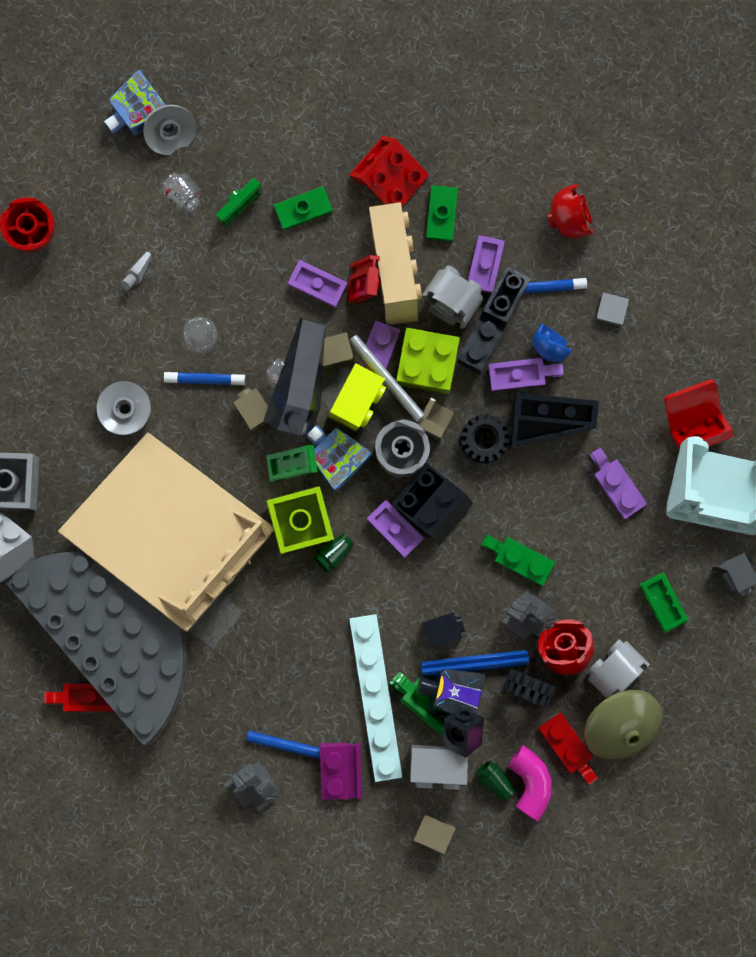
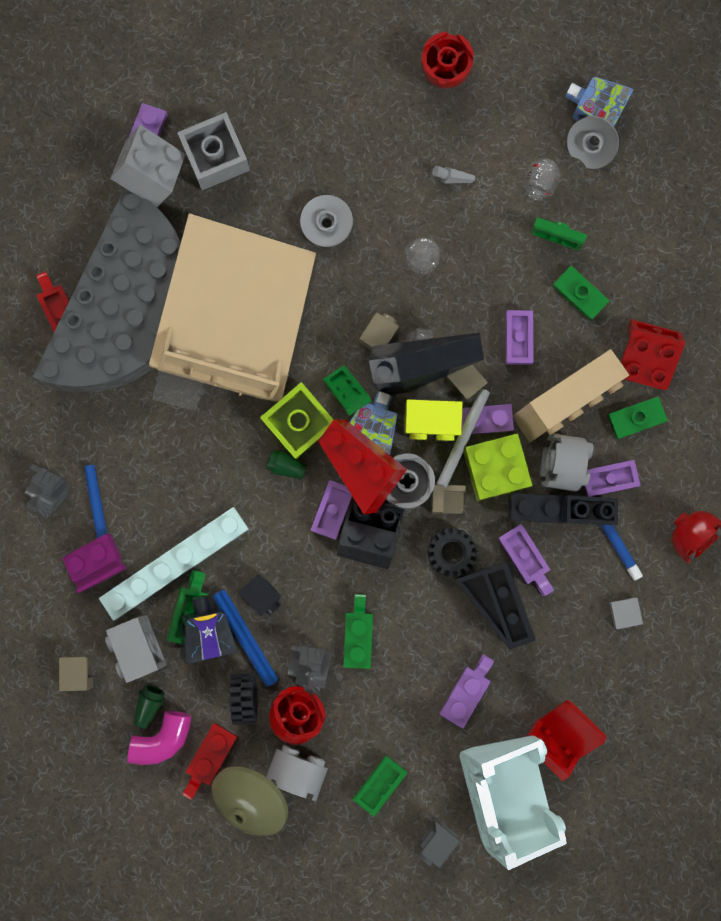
camera: 60 degrees right, 0 degrees up
(204, 378) = (386, 279): blue bar -> none
(364, 281) = (541, 376): red plate -> none
(368, 481) = (361, 464): none -> red wedge
(463, 731) = (172, 657): black brick -> none
(550, 344) = (565, 571): blue hair -> none

